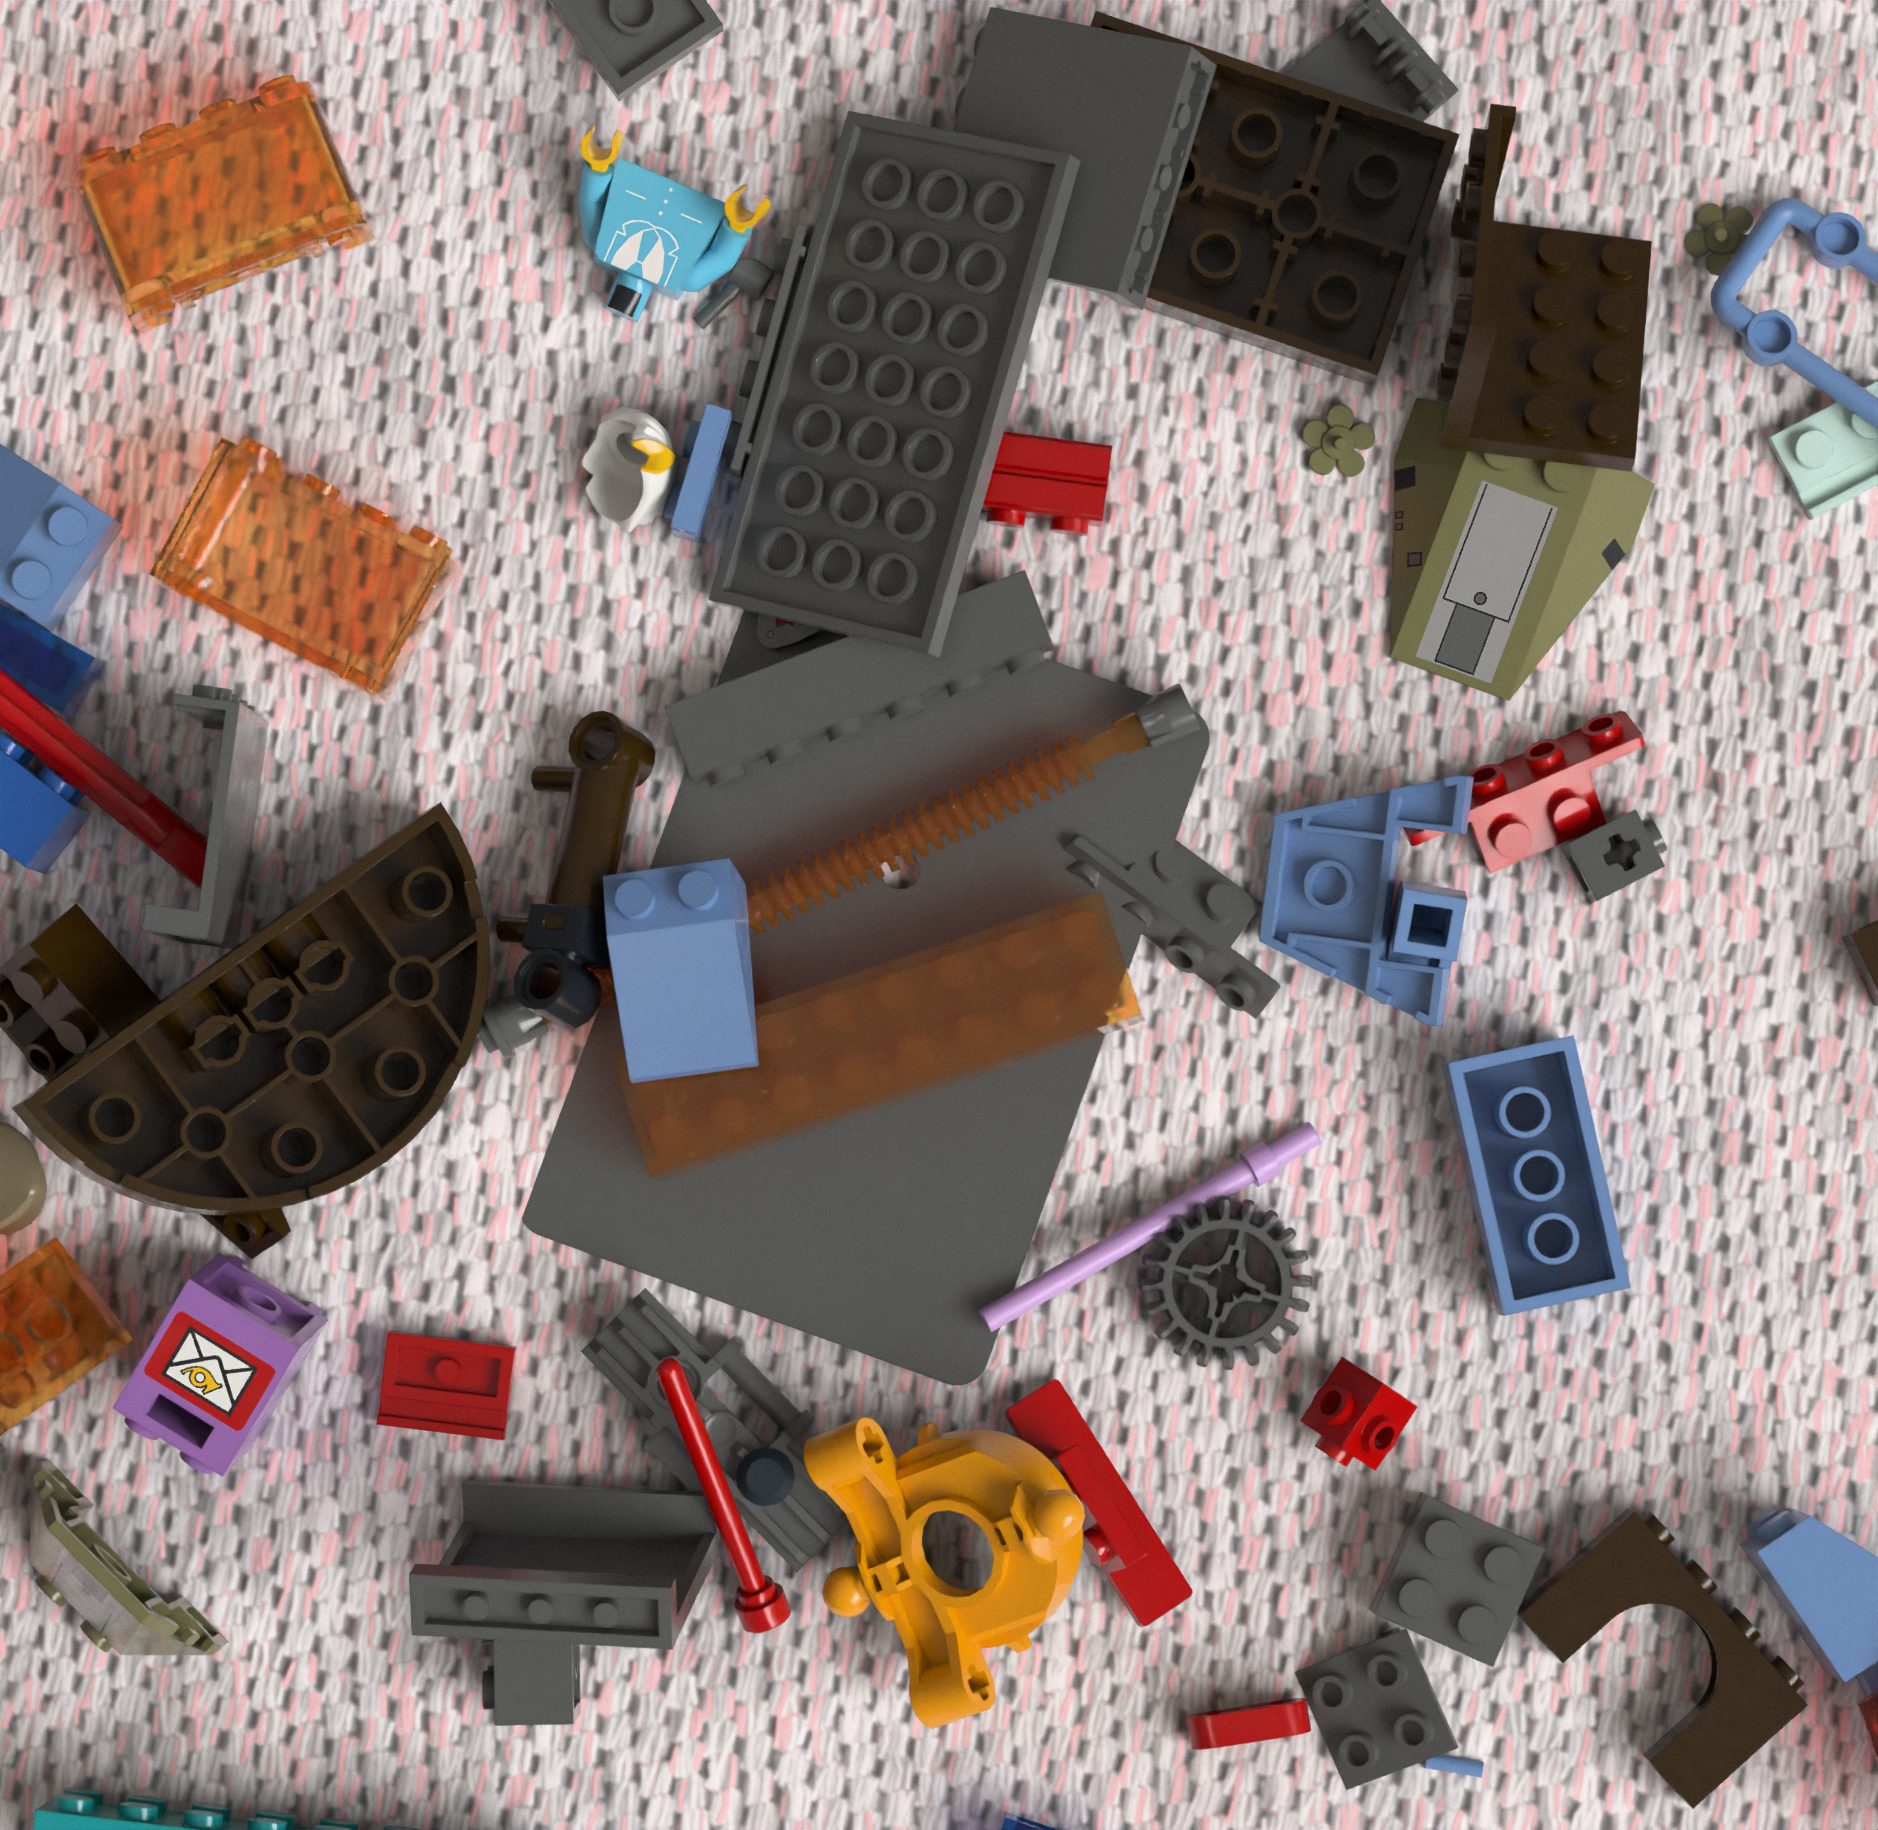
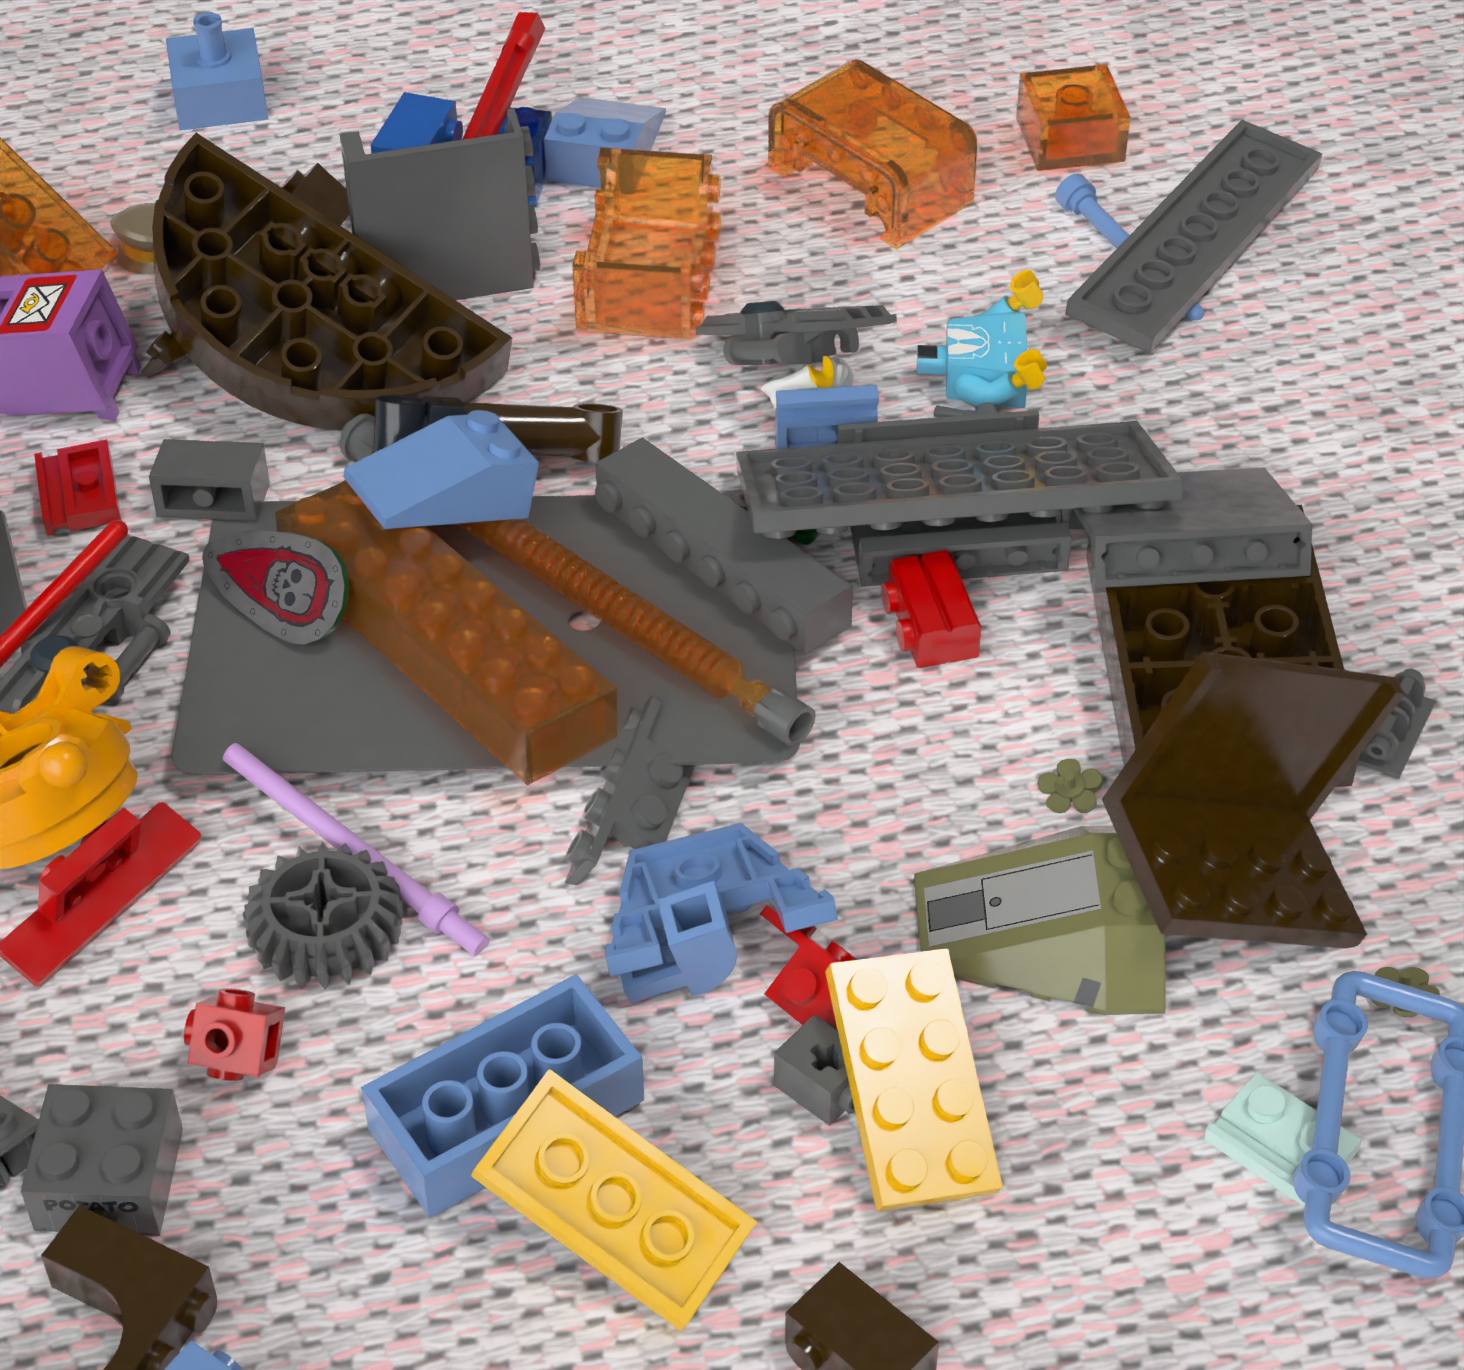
camera: 70 degrees right, 40 degrees down
(506, 1227) = (209, 480): none -> dark grey brick
(536, 468) = (774, 335): none -> dark grey piece
(748, 1199) = (281, 582): none -> shield
(1677, 780) = (913, 1080): none -> plate
(1708, 1116) = (614, 1199): none -> yellow plate

